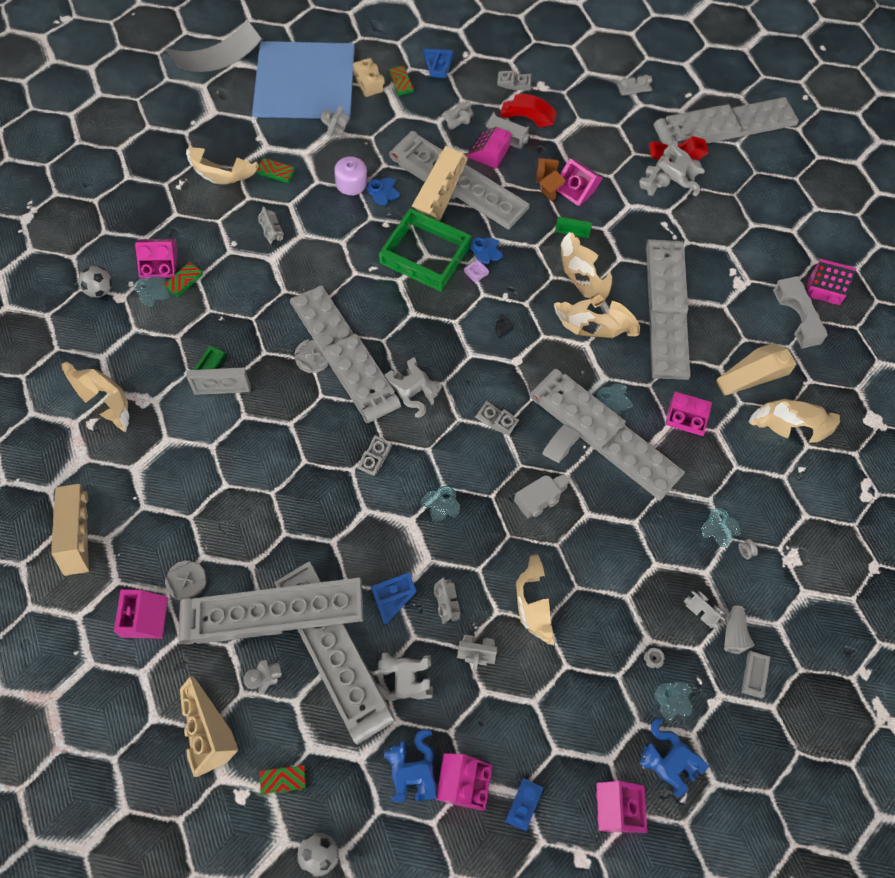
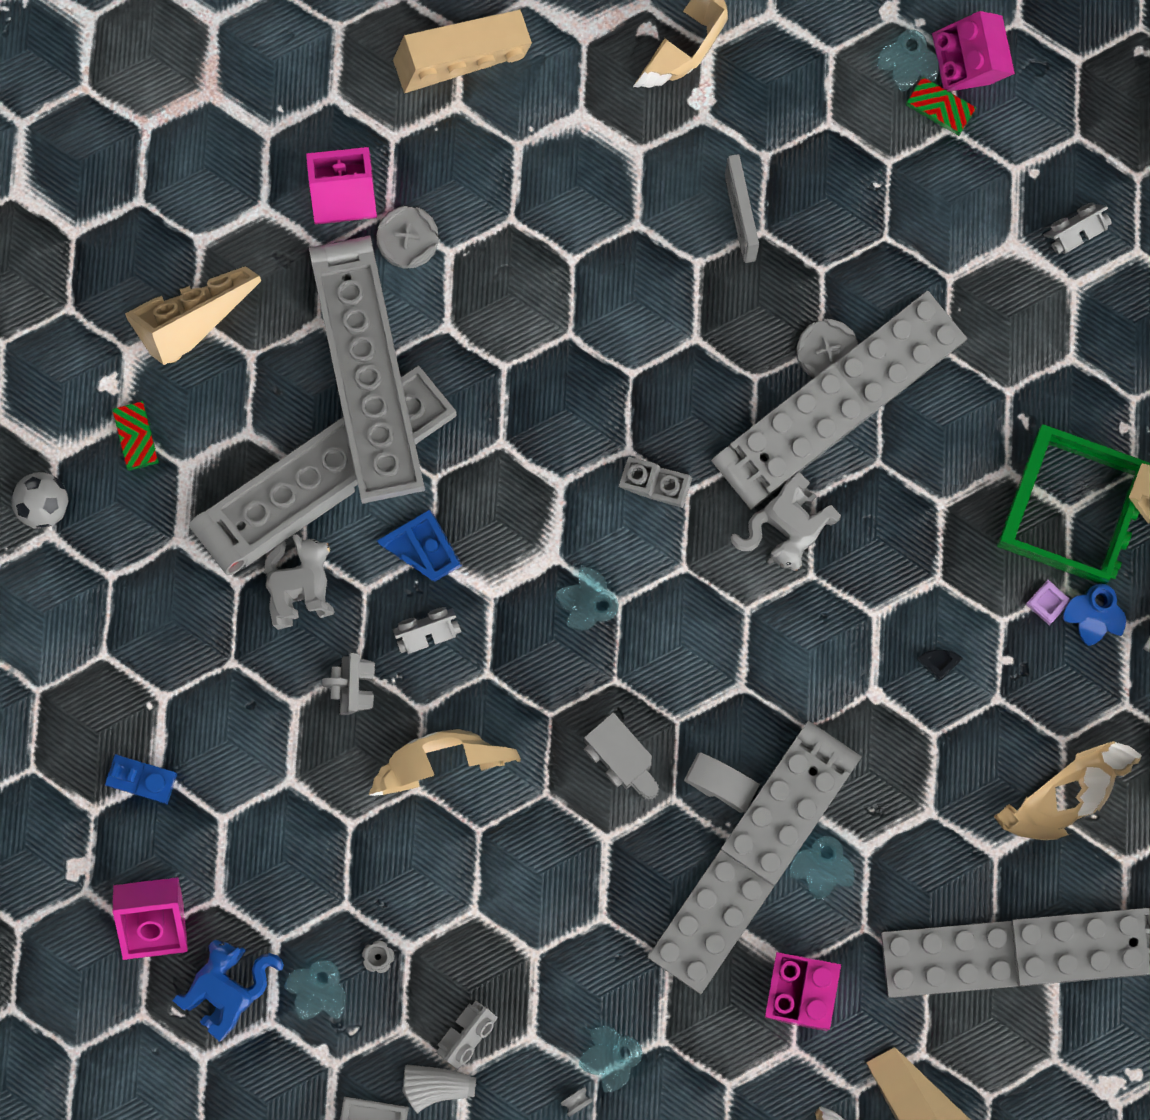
camera: 85 degrees right, 15 degrees up
(211, 359) = (781, 185): green tile -> none
(262, 676) = (270, 376): light grey hips -> none
(415, 773) = (163, 615): blue animal -> none
(464, 781) = (160, 688): dark pink slope -> none
(496, 419) = (755, 671): light grey slope -> none
(612, 324) = (975, 856): tan animal -> none

